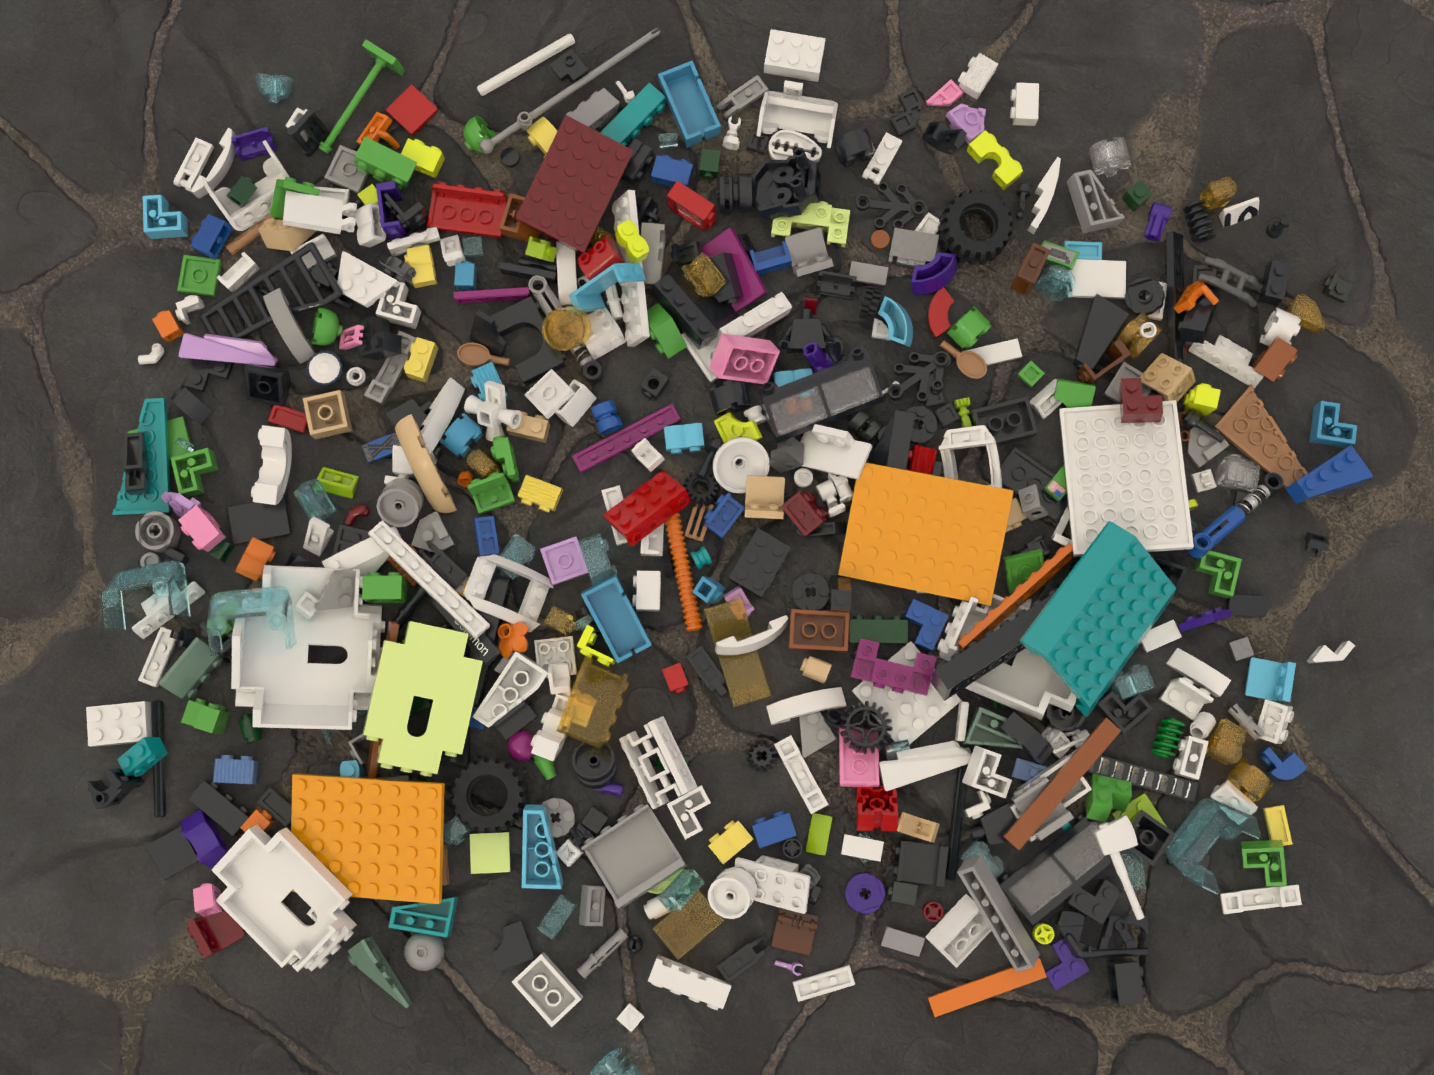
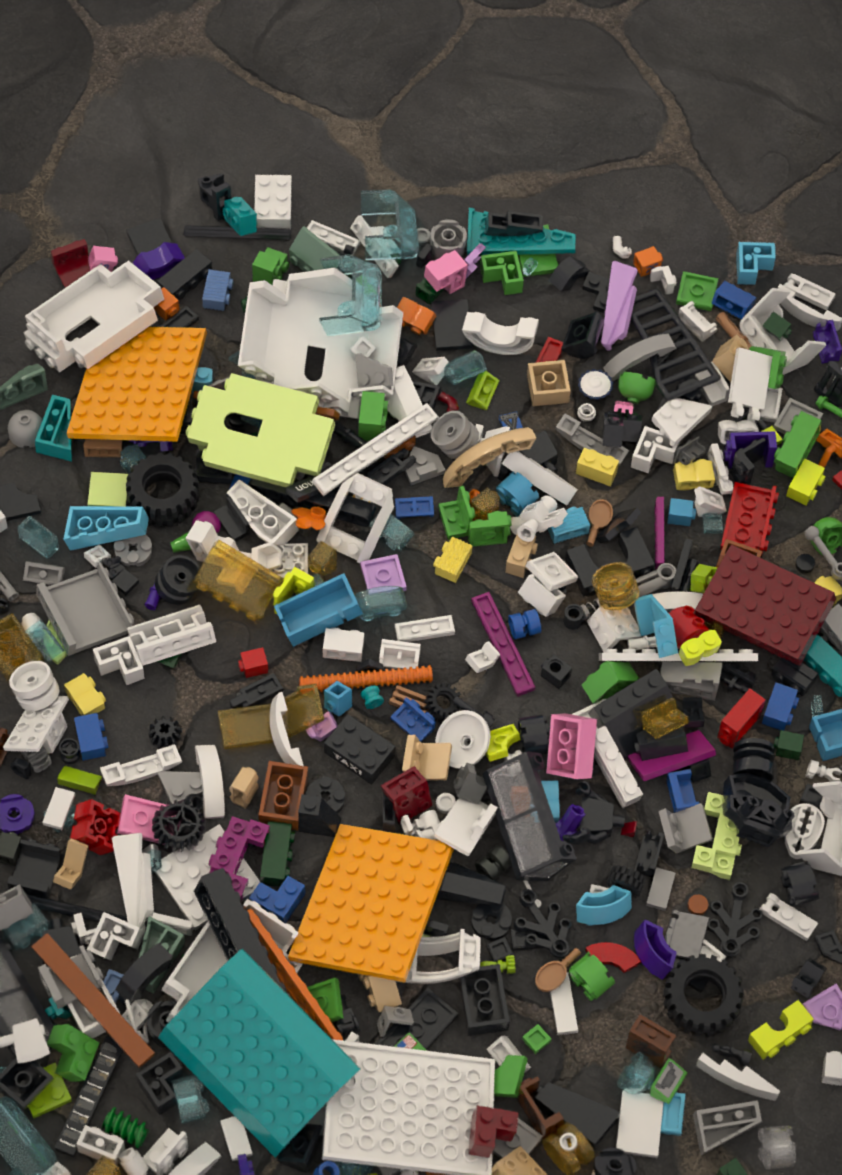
camera: 90 degrees right, 20 degrees down
(648, 507) = (426, 649): red bracket -> none
(684, 438) = (497, 693): medium azure brick -> none
(921, 459) = (449, 913): red brick -> none

